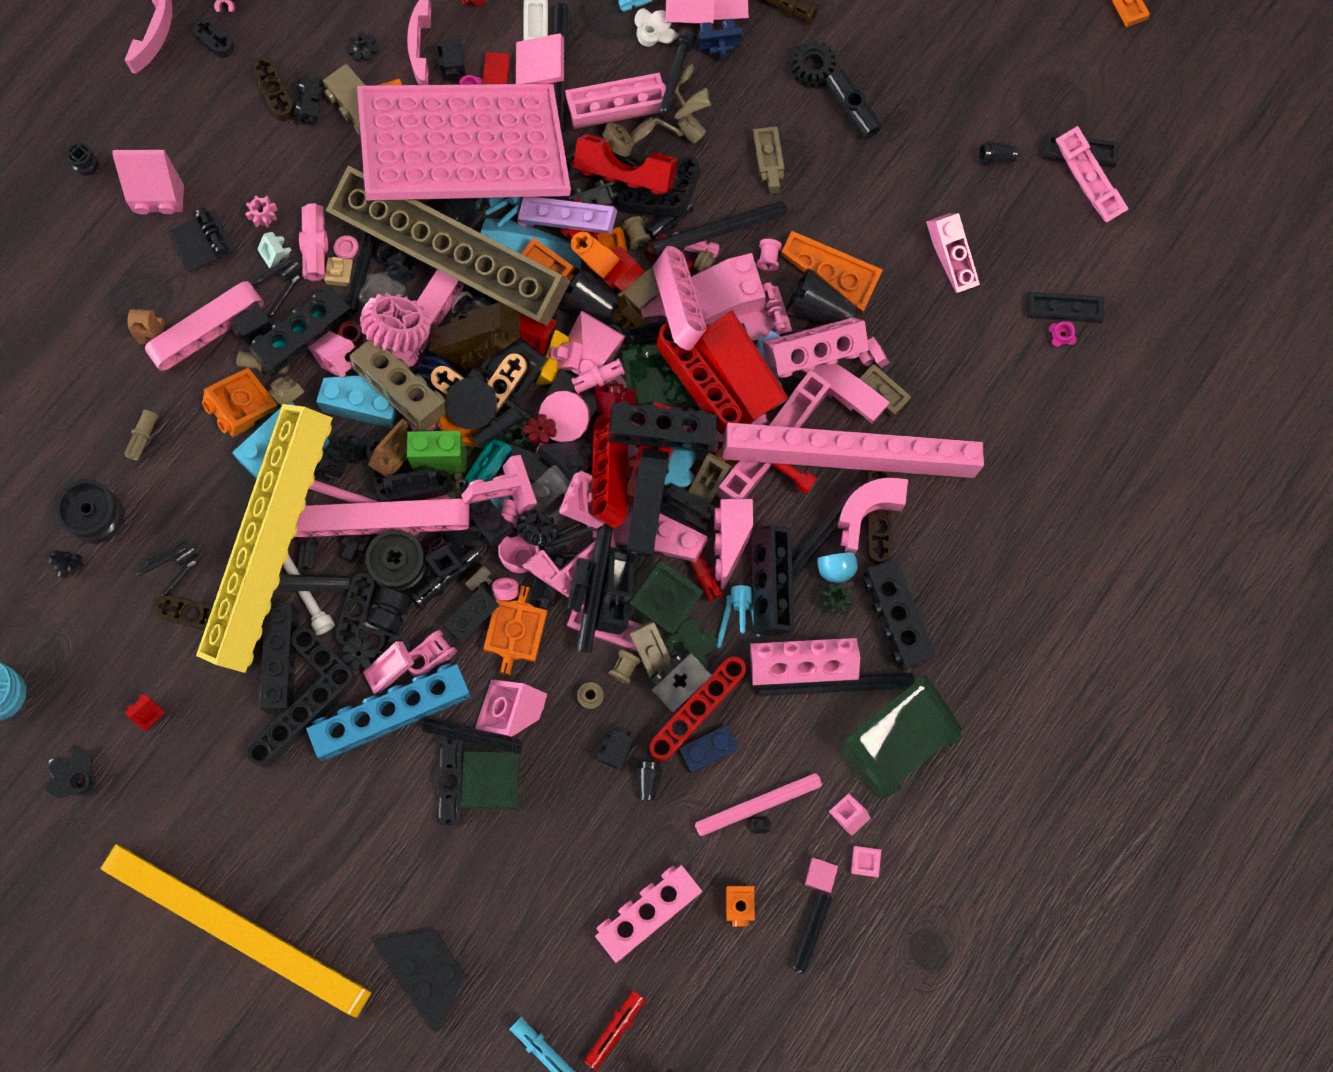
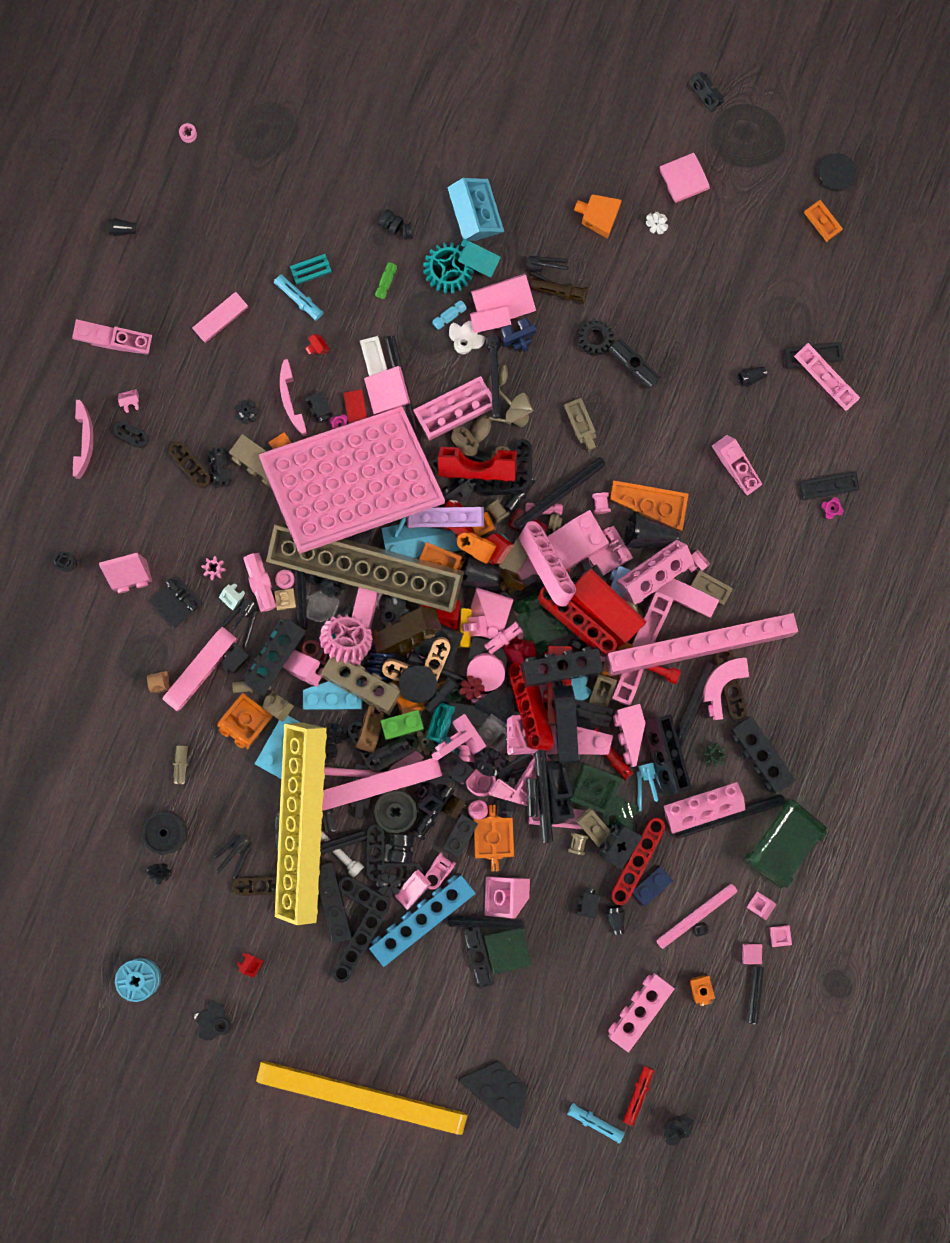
camera: 15 degrees left, 10 degrees up
(586, 703) = (559, 864): dark tan plate -> none
(837, 567) = (711, 733): medium azure hair -> none

